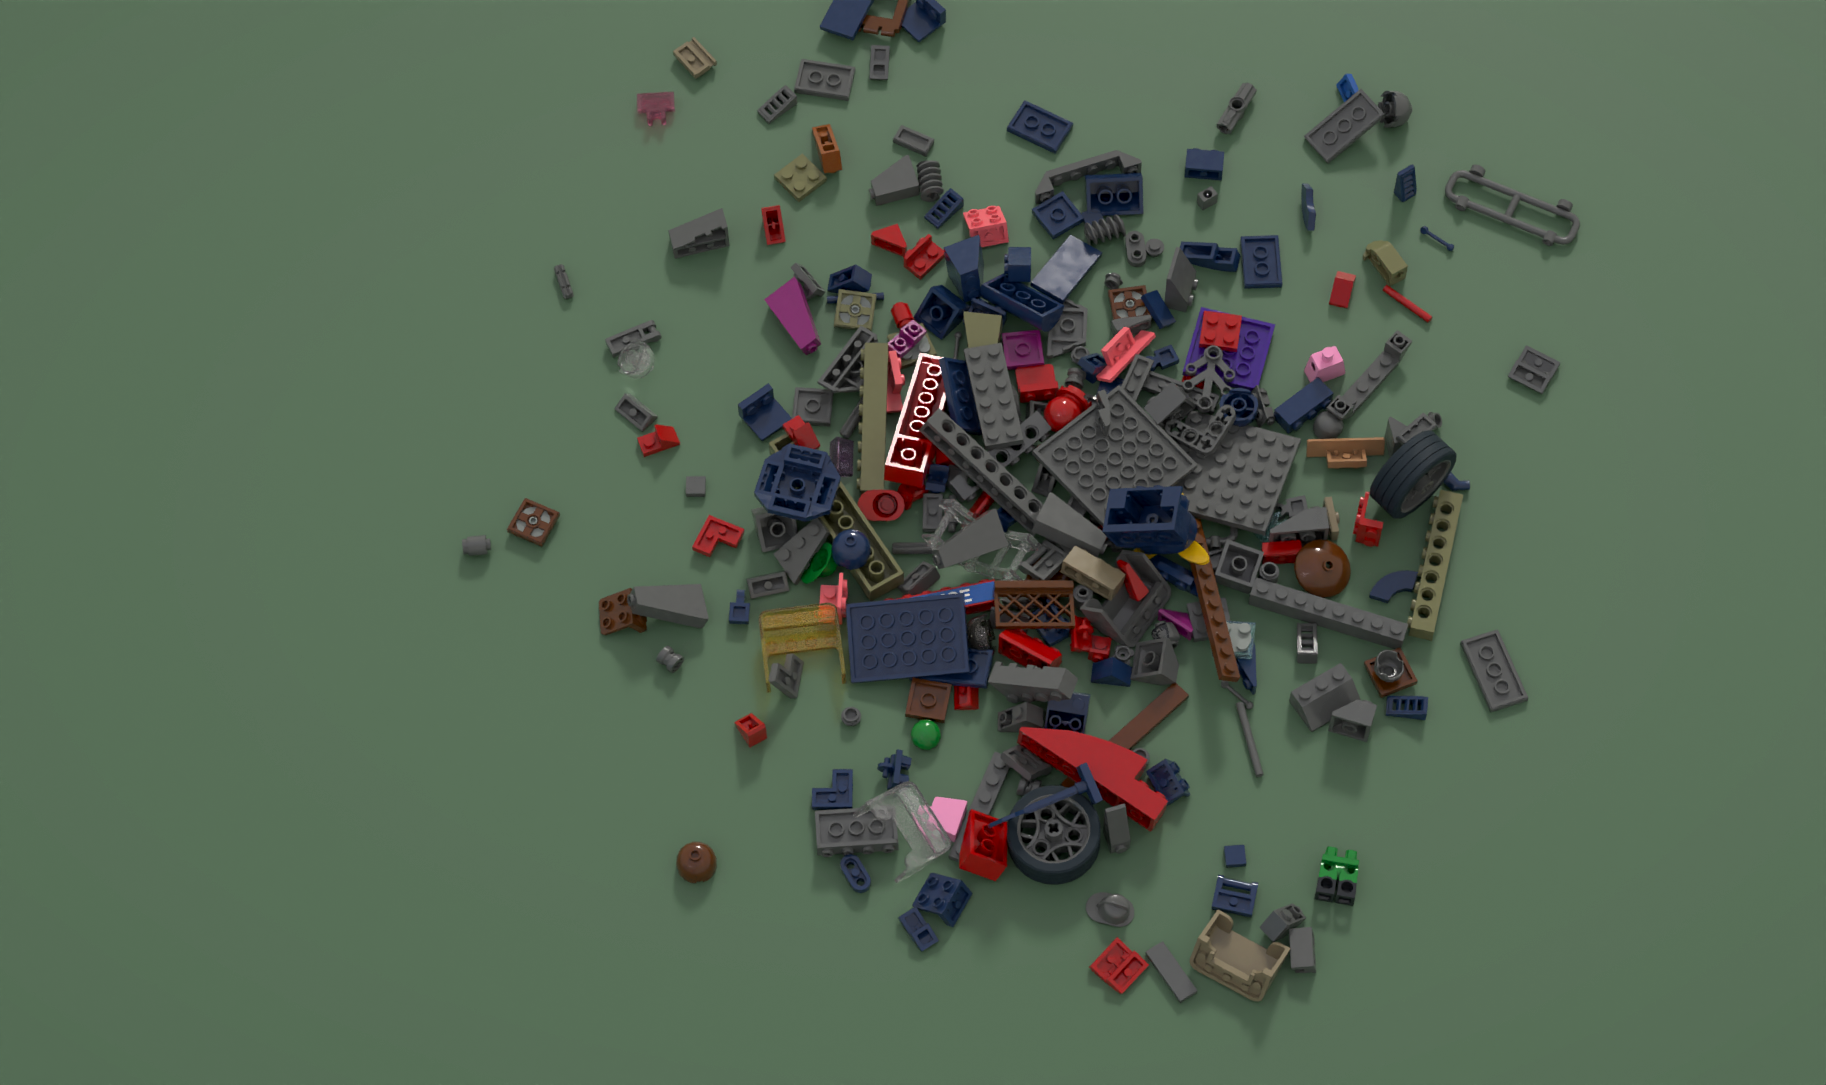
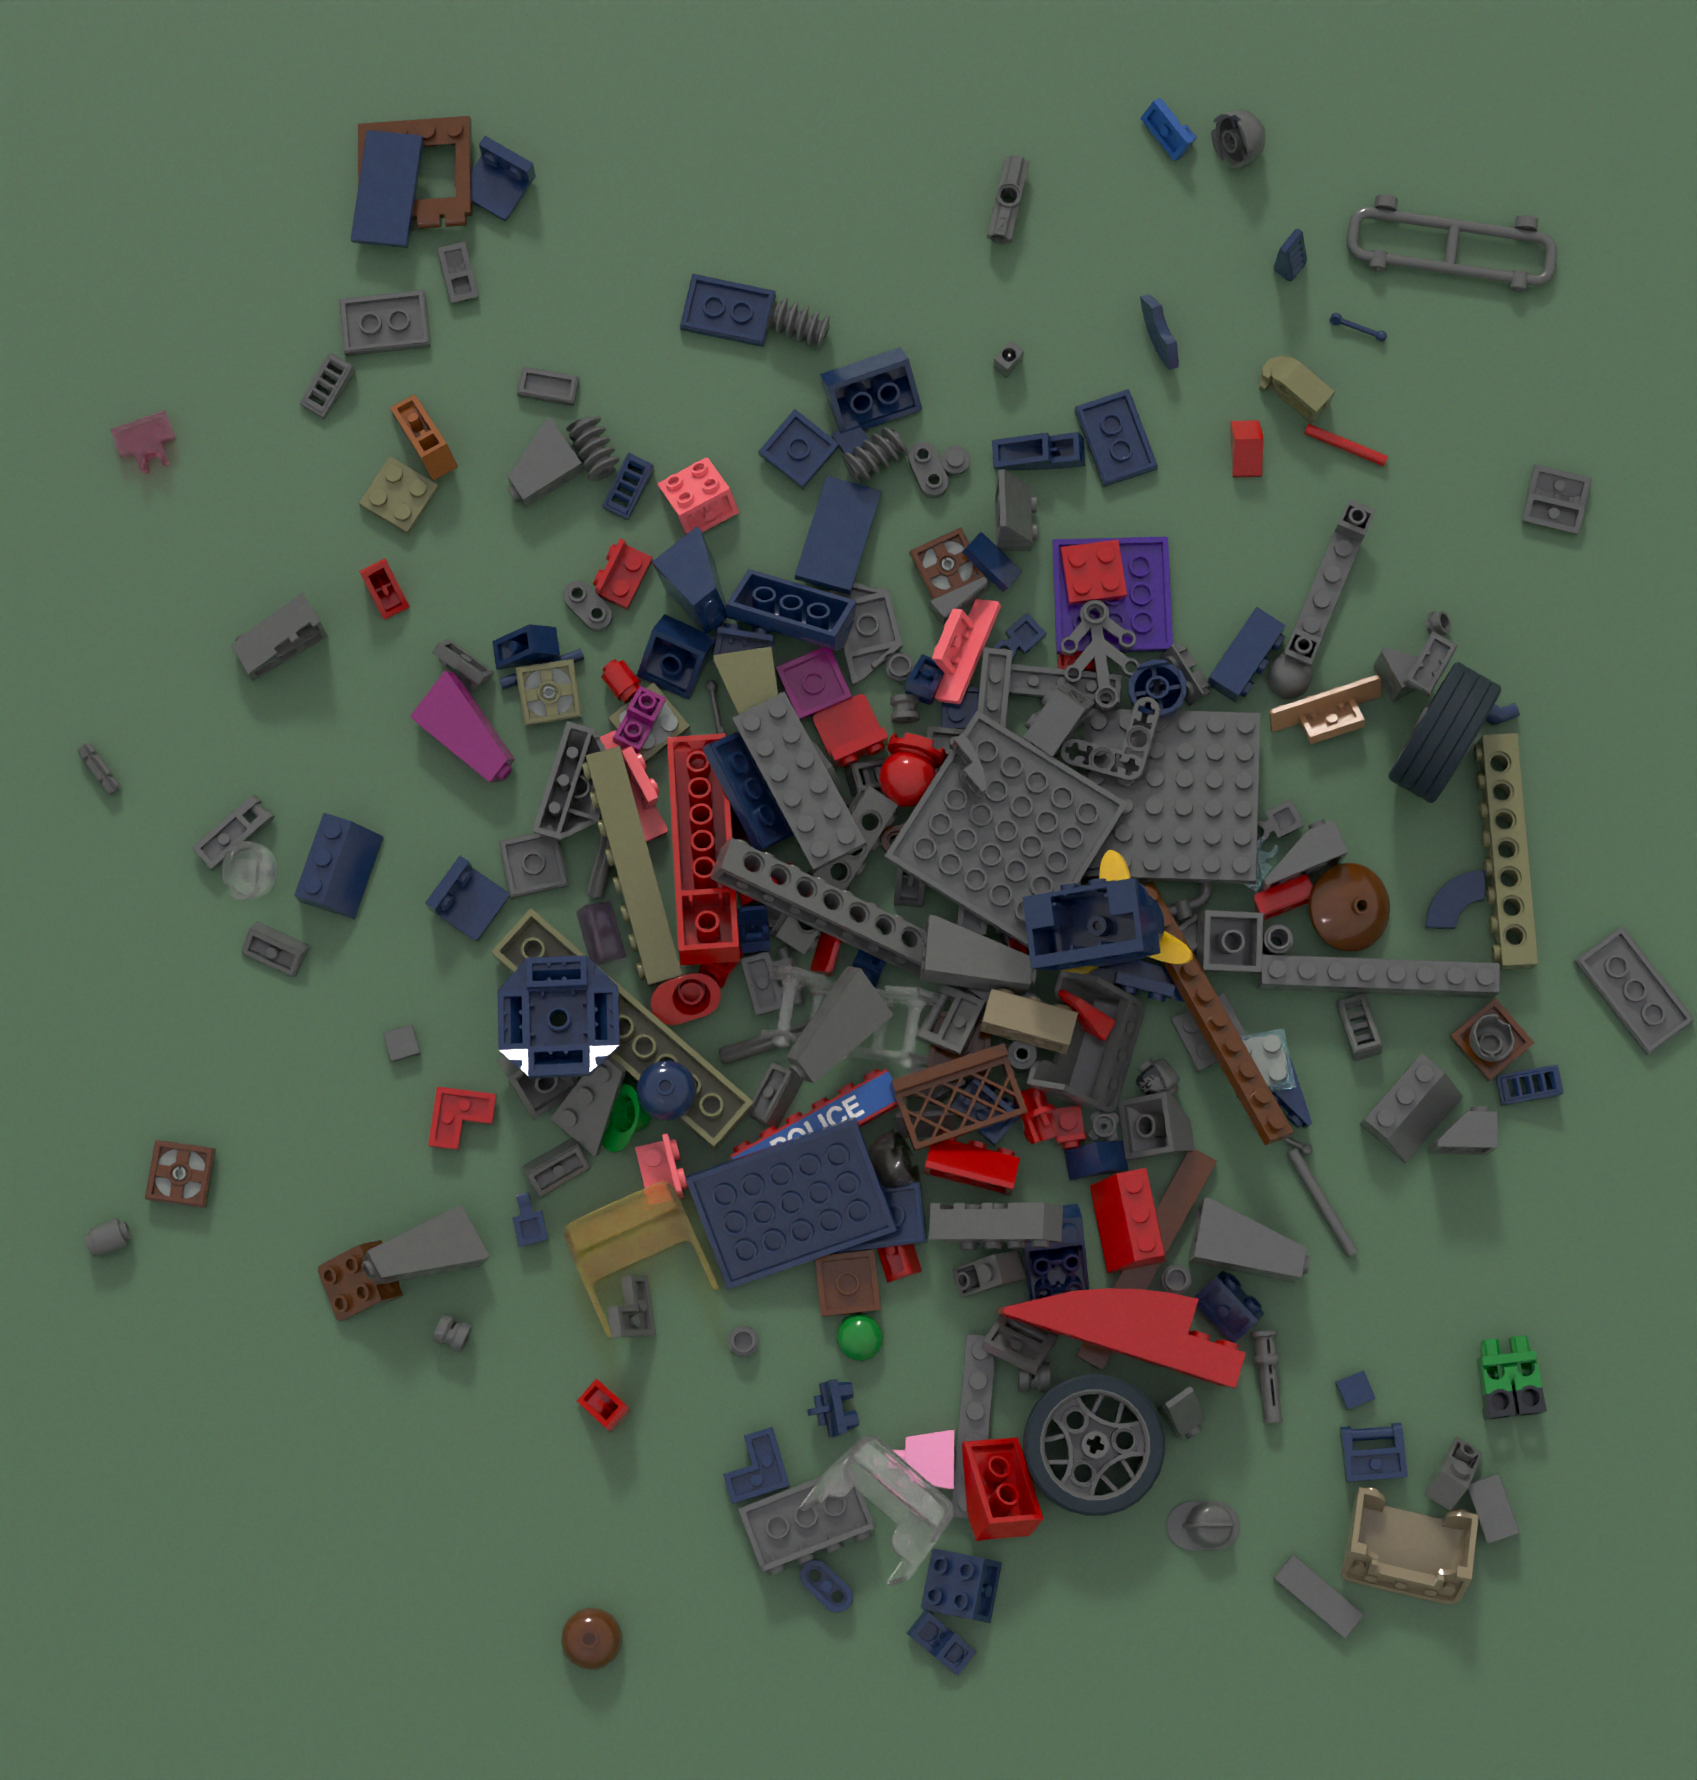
camera: 20 degrees left, 15 degrees up
(657, 441) = (323, 986): red slope -> none
(691, 374) = (338, 866): none -> dark blue slope
(694, 58) = (178, 343): dark tan plate -> none
(801, 433) = (536, 927): red slope -> none
(890, 239) = (565, 560): red slope -> none
(895, 268) = (587, 605): none -> dark grey plate
(1018, 264) = (767, 549): dark blue brick -> none
(1079, 143) = (799, 323): none -> dark grey piece
(1086, 784) = (1035, 1452): dark blue piece -> none
(1089, 166) = (875, 337): dark grey slope -> none
(1113, 281) = (911, 532): dark grey plate -> none
(1118, 966) = (1242, 1610): red slope -> none
(1120, 711) = (1127, 1221): none -> red slope
(1180, 620) = (1168, 1047): magenta slope -> none
(1182, 821) = (1266, 1360): none -> dark grey pin
(1189, 745) = (1243, 1245): none -> dark grey slope
(1204, 164) = (988, 304): dark blue brick -> none
(1325, 365) = (1260, 582): bright pink torso -> none
(1333, 518) = (1332, 812): dark tan plate -> none
(1344, 126) = (1175, 186): dark grey tile -> none
(1366, 530) = (1397, 833): red bracket -> none

